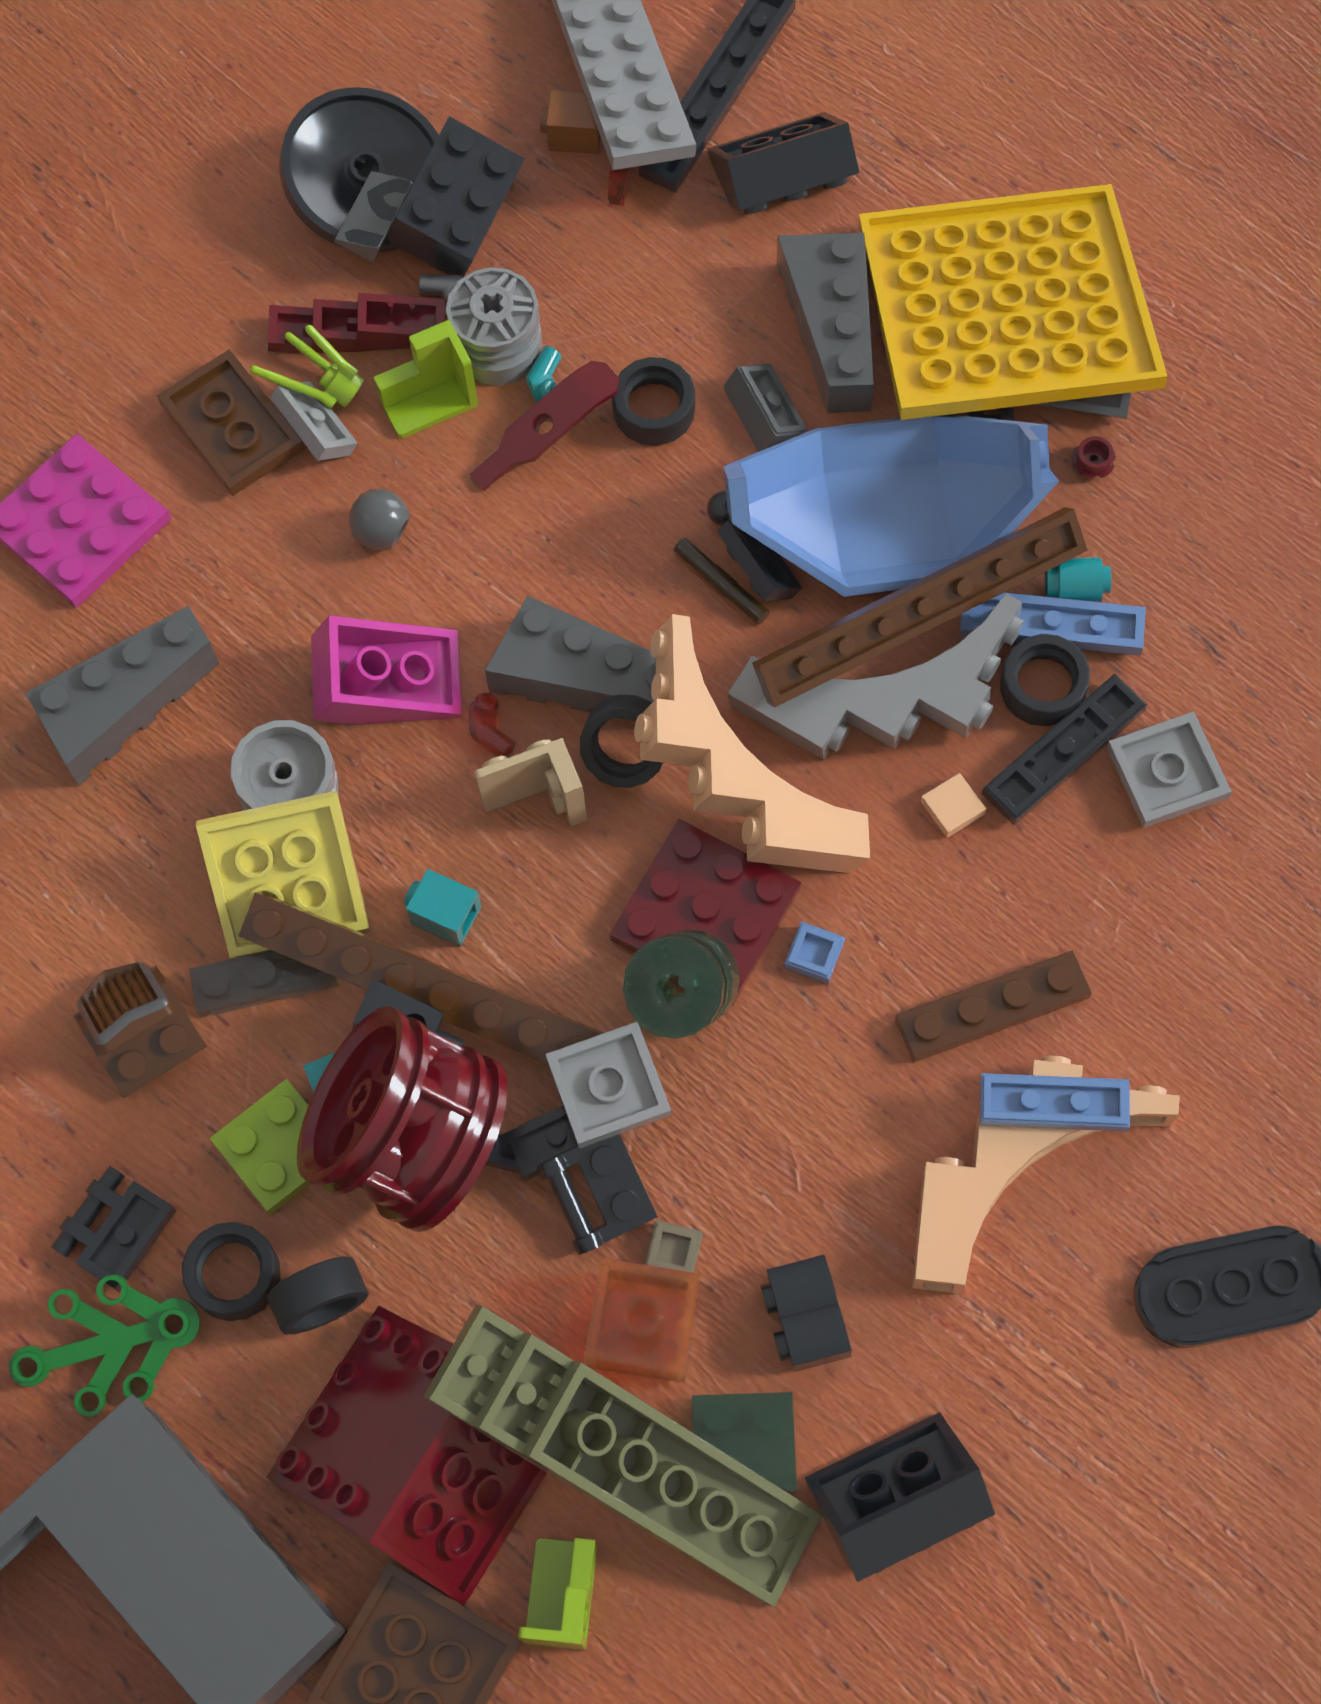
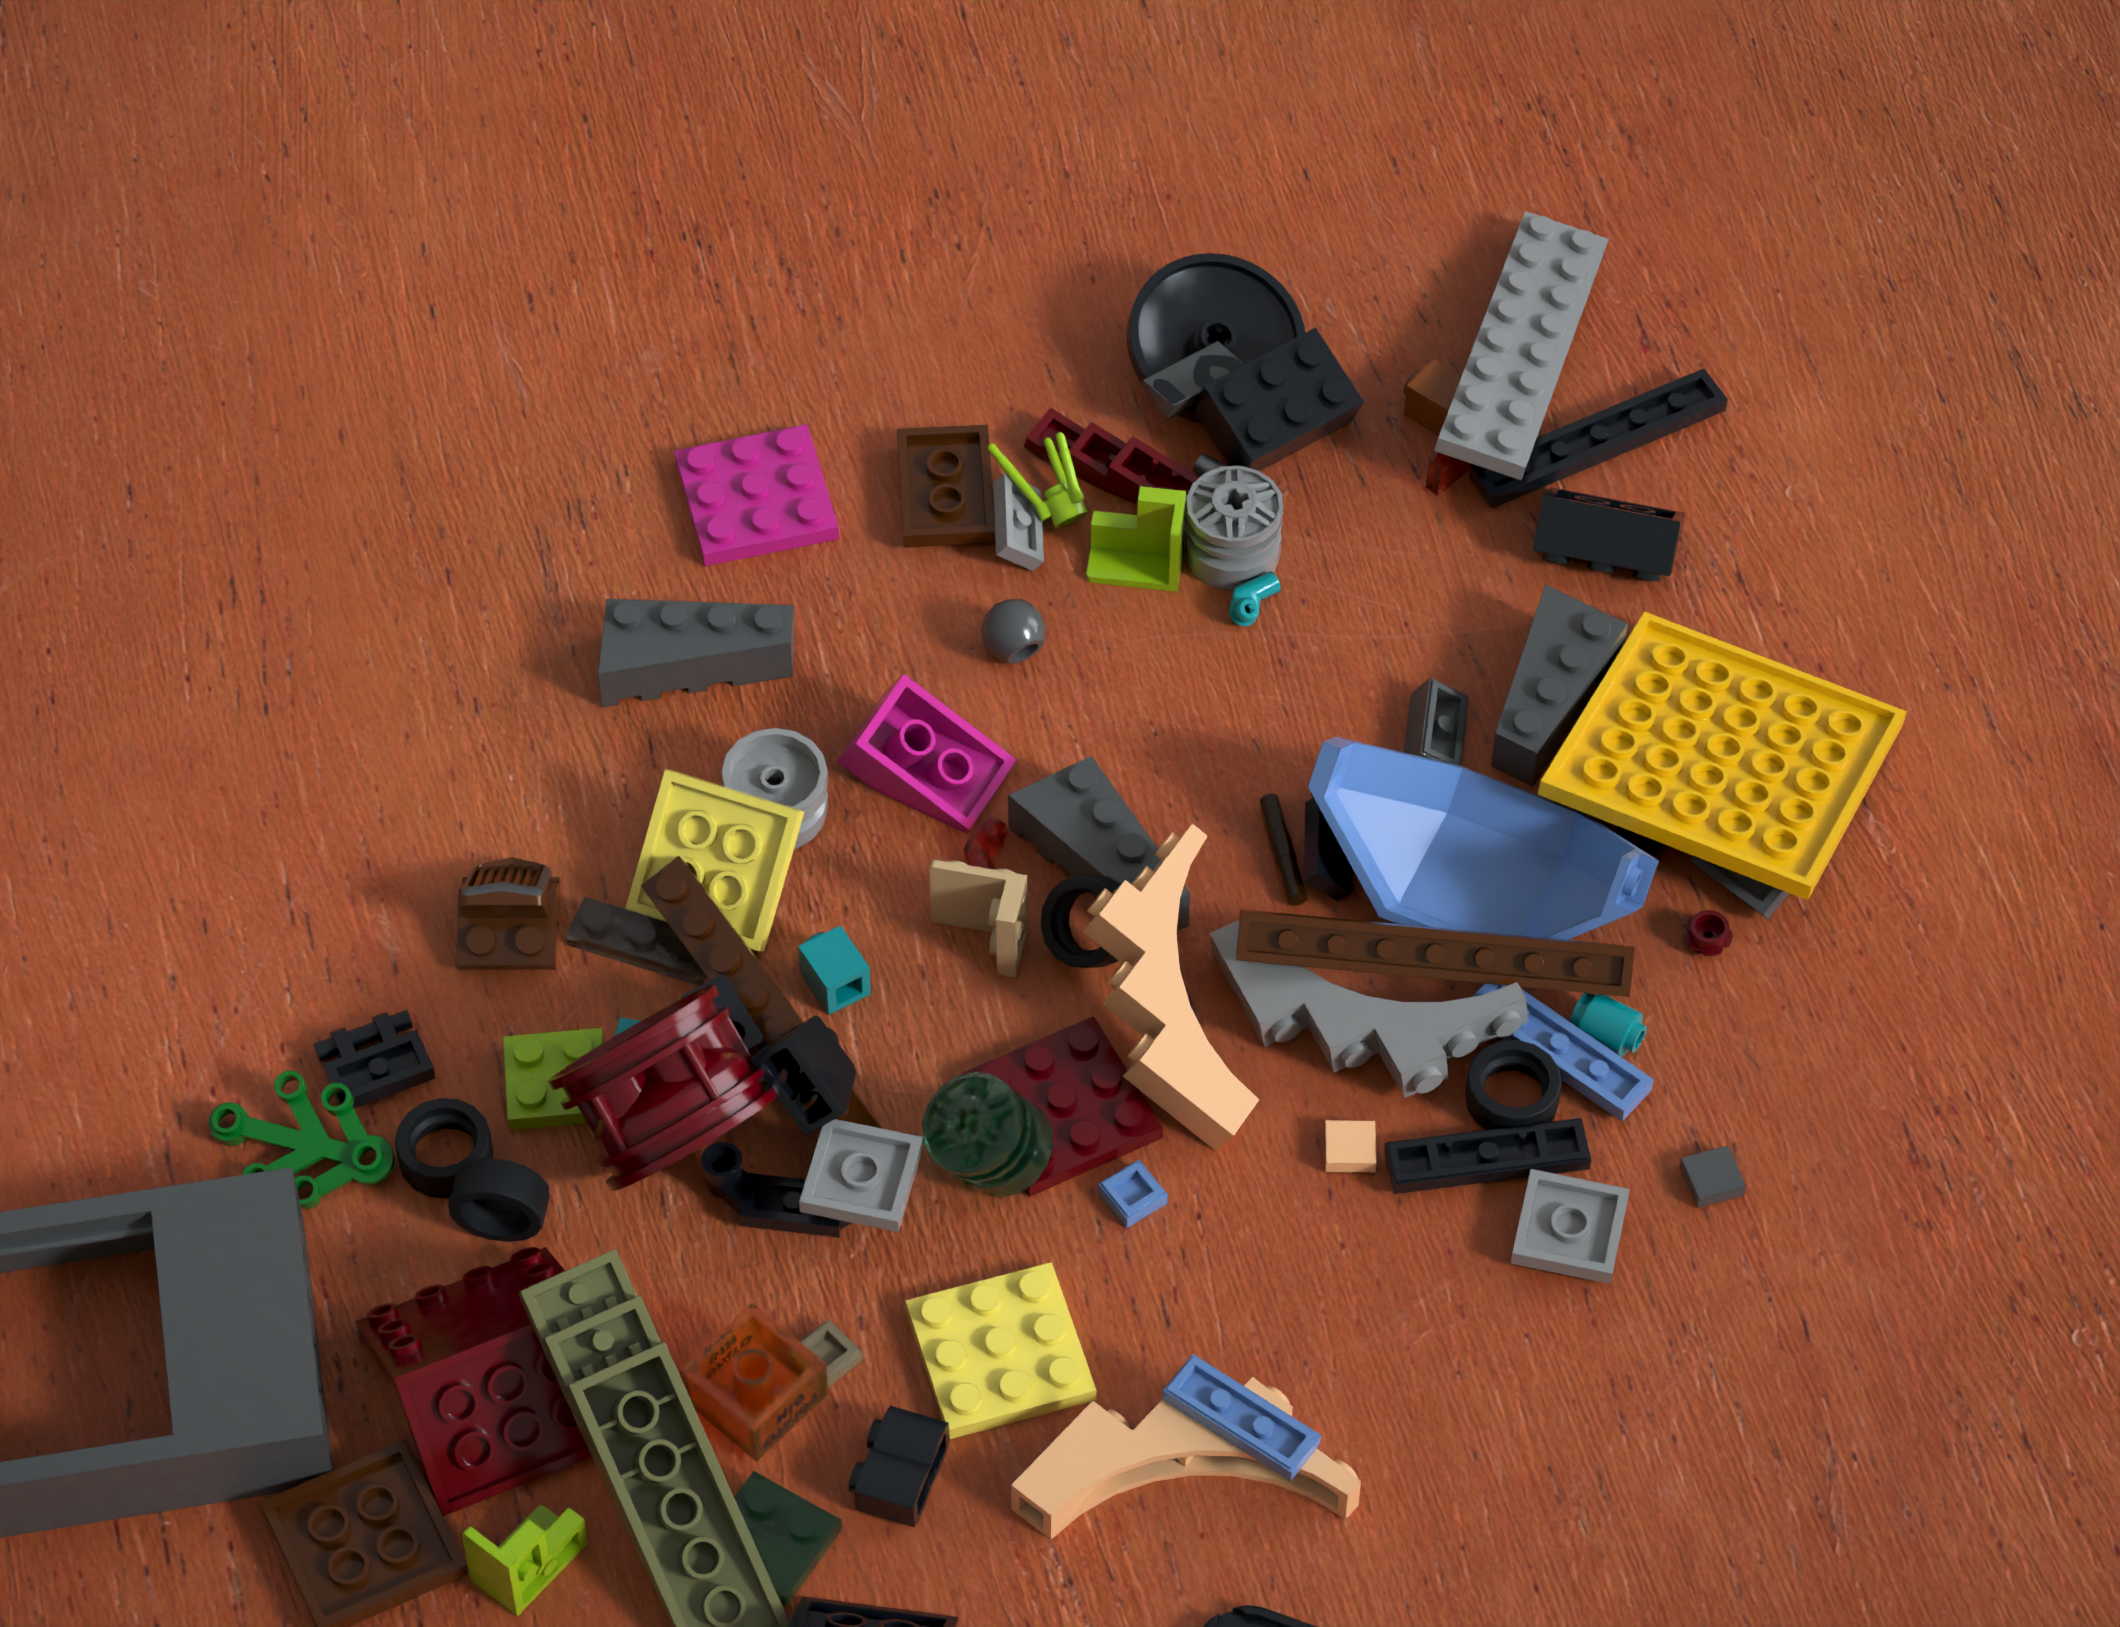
camera: 30 degrees right, 15 degrees down
(509, 1026) = (808, 1073): none -> black torso
(562, 406) = (1243, 628): dark red piece -> none
(613, 1185) = (812, 1264): black plate -> none
(654, 371) = (1338, 639): black tyre -> none
(808, 1157) = (1000, 1350): none -> light yellow plate
(993, 1006) = (1258, 1327): reddish brown plate -> none
(1239, 659) = (1712, 1176): none -> dark grey tile

